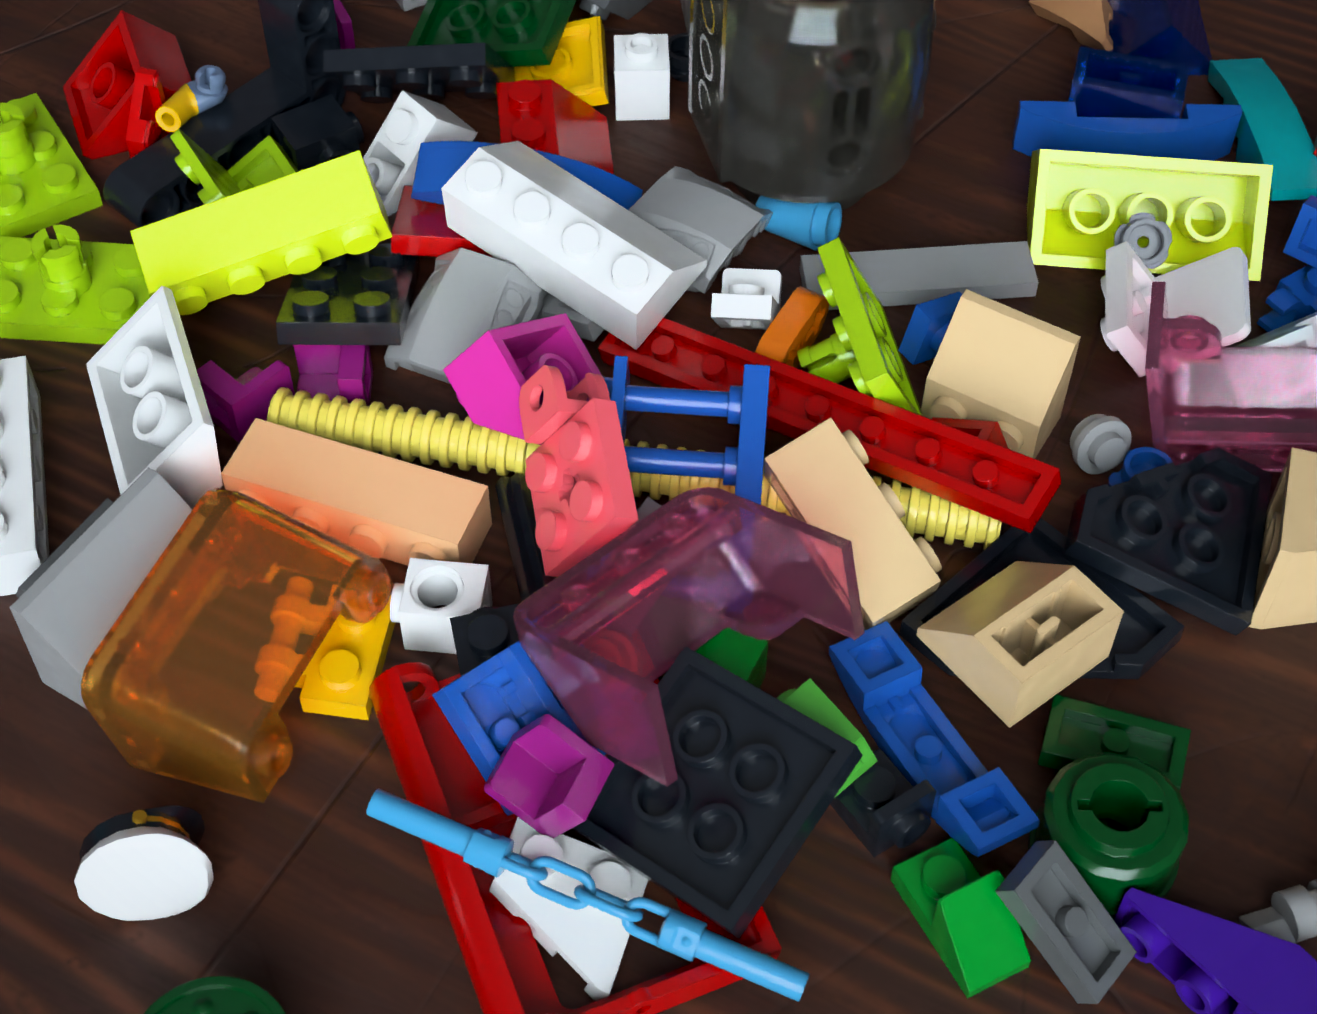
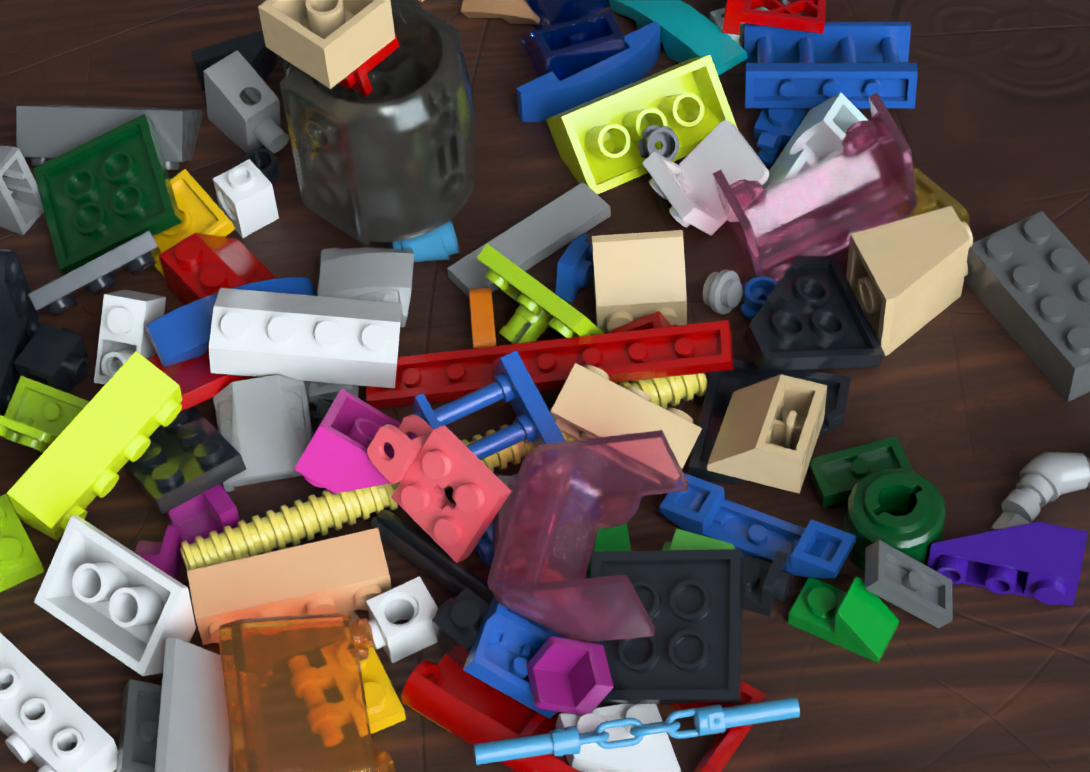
camera: 30 degrees left, 0 degrees up
(747, 298) = (439, 314): white bracket -> none

